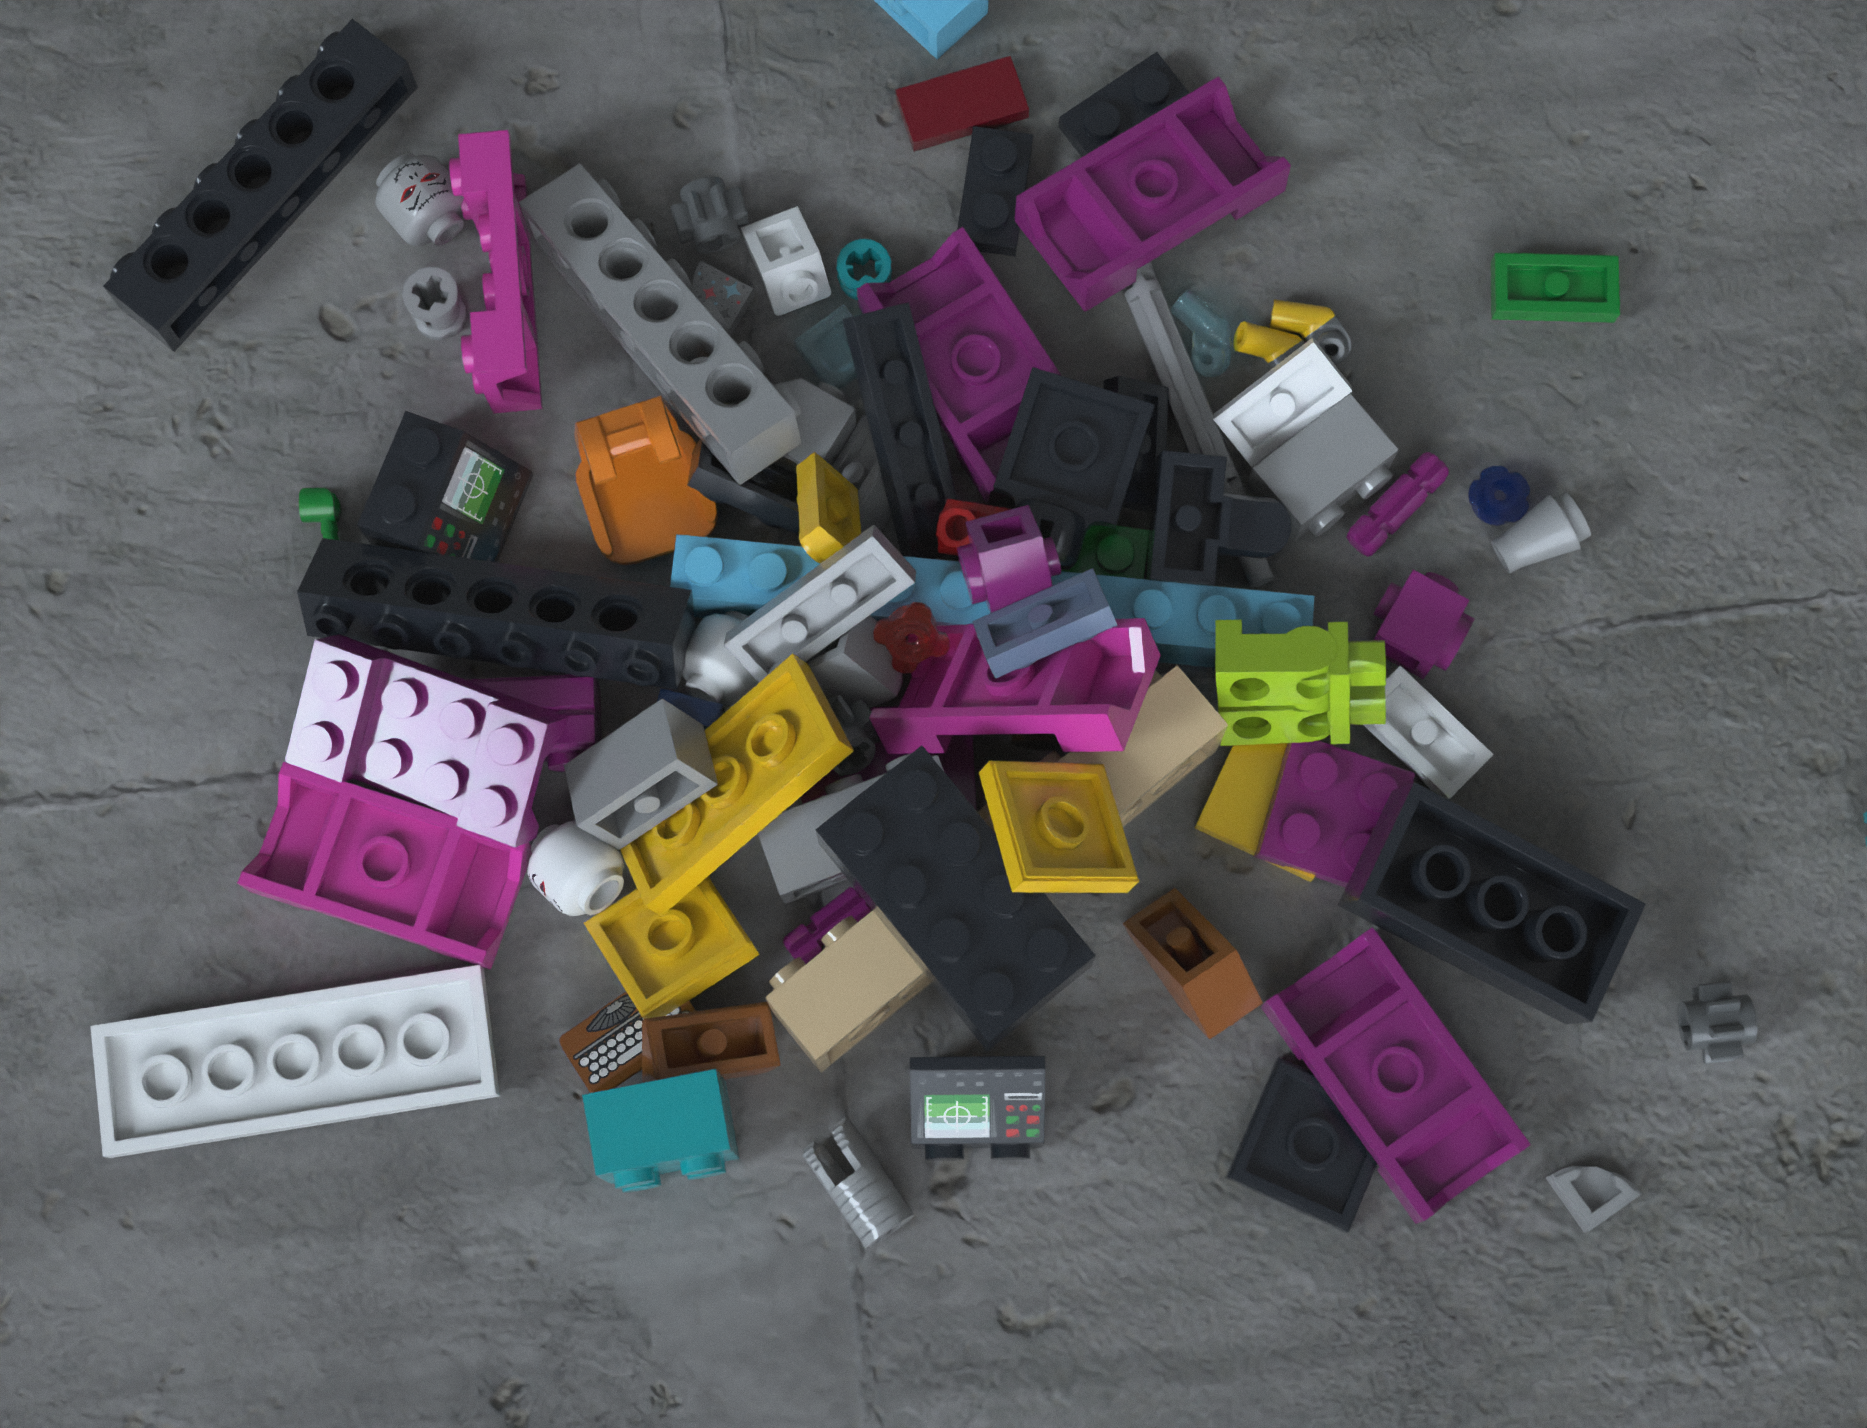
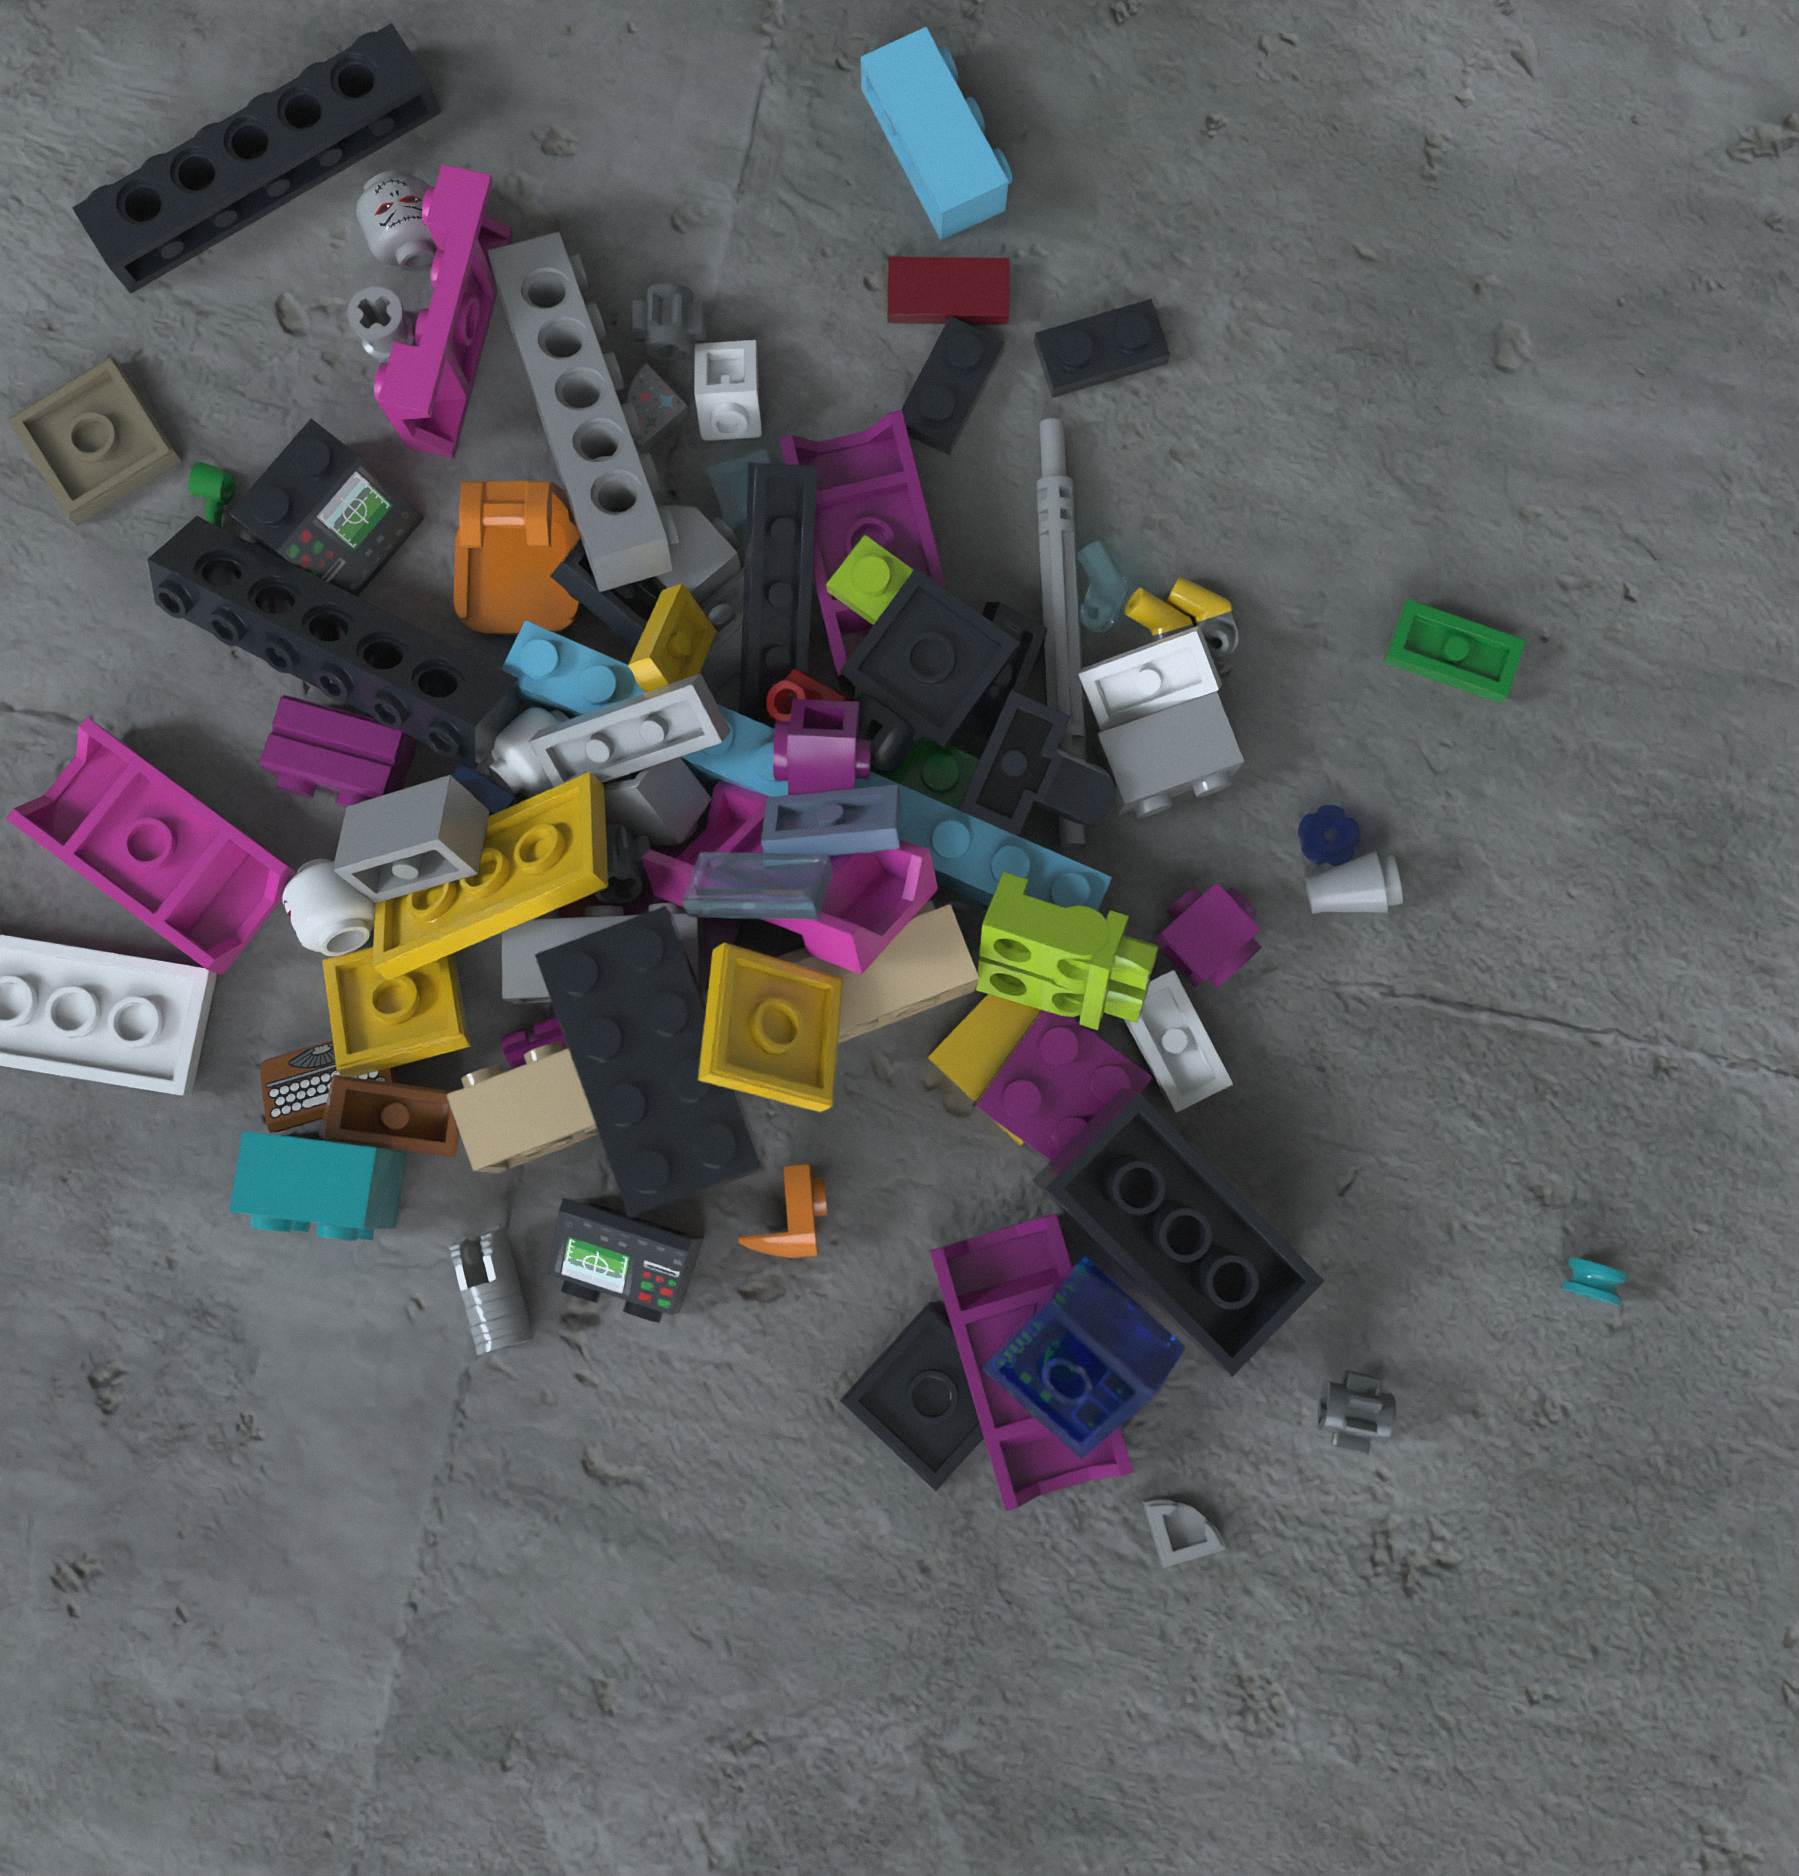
camera: 15 degrees right, 5 degrees up
(189, 500) = (94, 440): none -> dark tan tile
(423, 737) = (220, 735): piece -> none
(861, 252) = (803, 404): teal bush -> none
(906, 620) = (722, 780): clear red plate -> none
(990, 394) = (868, 579): none -> lime plate
(997, 701) = (758, 885): none -> clear light blue tile
(1128, 999) = (804, 1201): none -> orange plate
(1147, 193) = (1092, 433): magenta piece -> none
(1194, 963) = (877, 1188): dark orange slope -> none
(1397, 504) = (1228, 812): magenta axle -> none
(1448, 1049) = (1084, 1358): none -> clear blue slope

